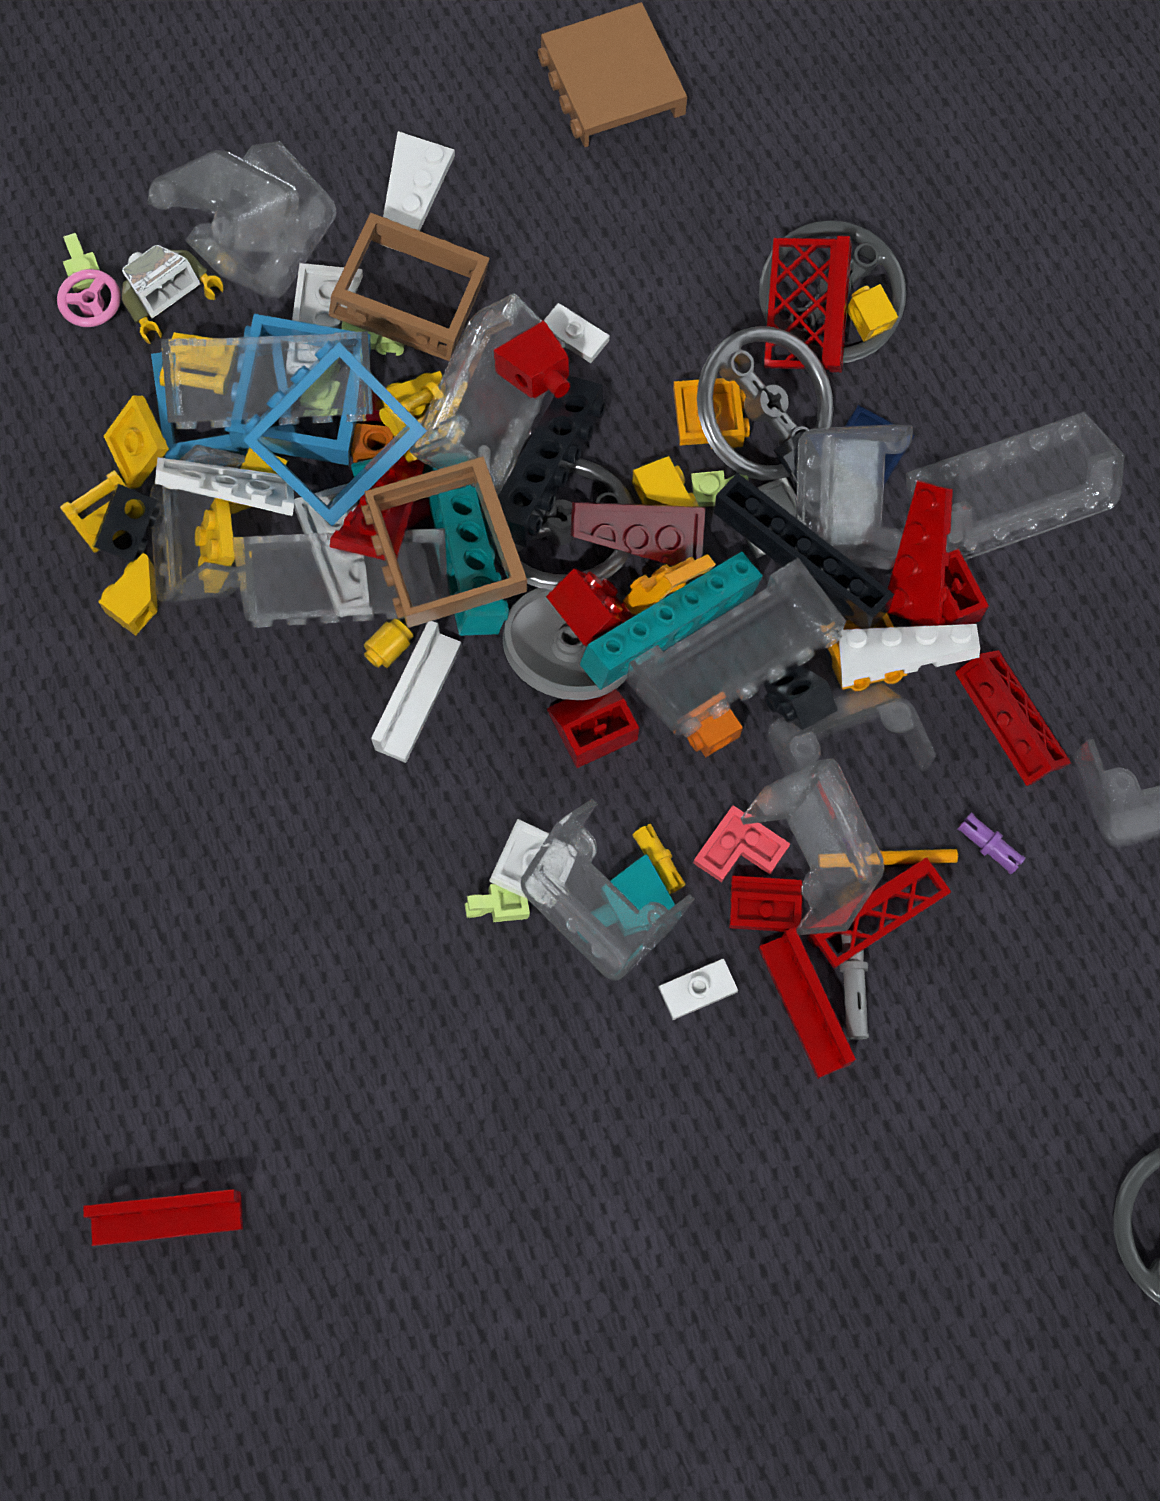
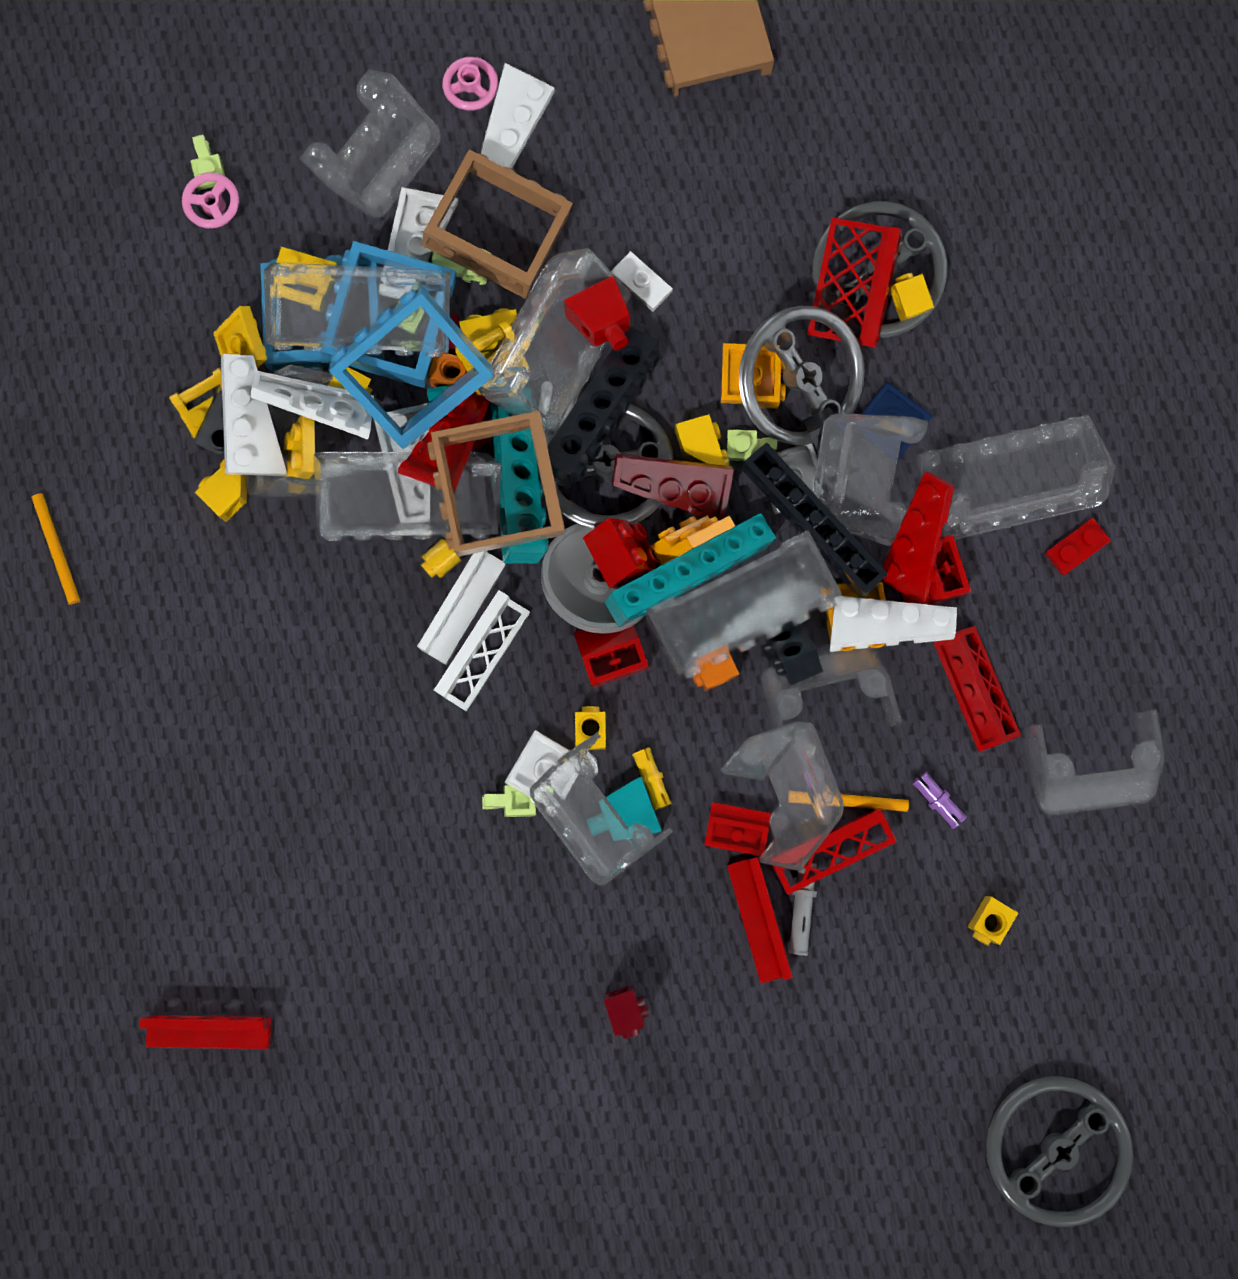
camera: 10 degrees right, 10 degrees up
(153, 520) = (247, 423): none -> white wing
(159, 280) = (274, 190): torso -> none
(249, 204) = (357, 128): clear windscreen -> none
(362, 153) = (469, 69): none -> bright pink piece
(433, 734) = (472, 645): none -> white fence
(581, 794) = (590, 713): none -> yellow brick
(666, 1124) = (626, 1011): none -> dark red brick
(698, 989) = (670, 895): white plate -> none
(734, 840) = (709, 777): coral plate -> none
(1087, 963) = (1004, 915): none -> yellow brick
(1097, 554) = (1077, 547): none -> red plate

